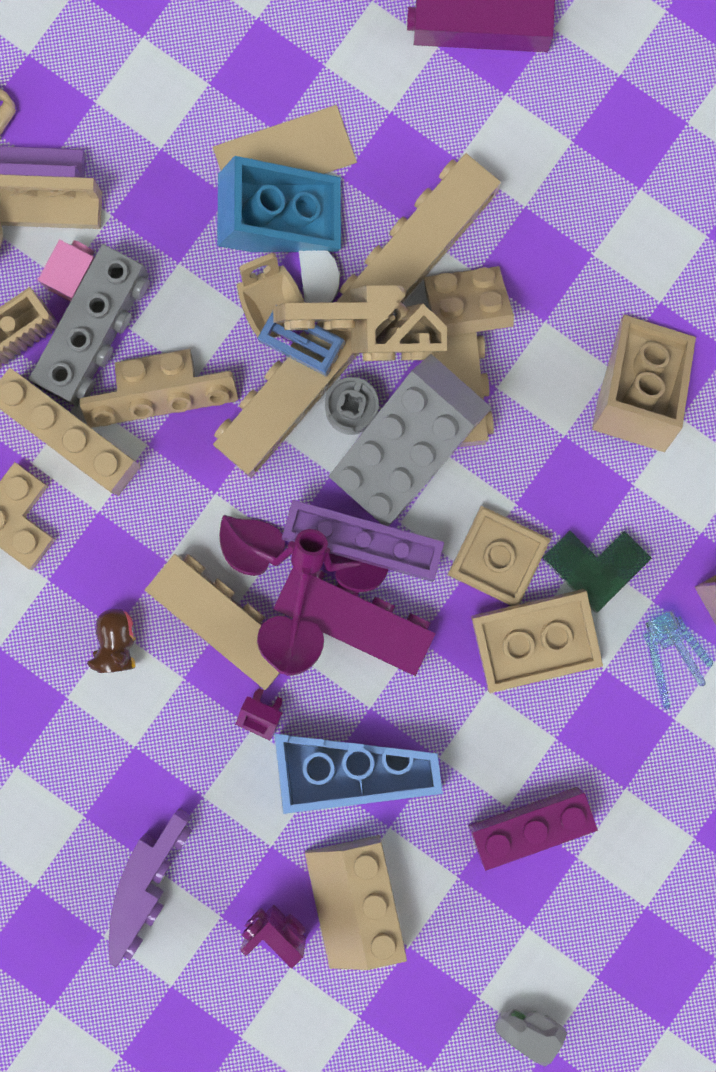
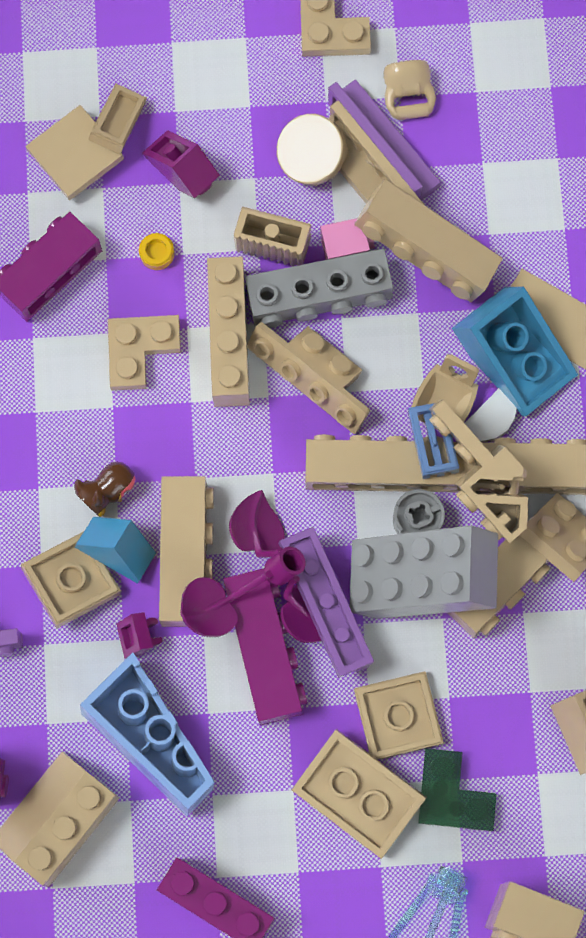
camera: 55 degrees right, 10 degrees down
(126, 202) = (428, 241): none -> tan brick
(167, 733) = (69, 581): none -> tan plate
(171, 673) = (117, 545): none -> dark azure slope

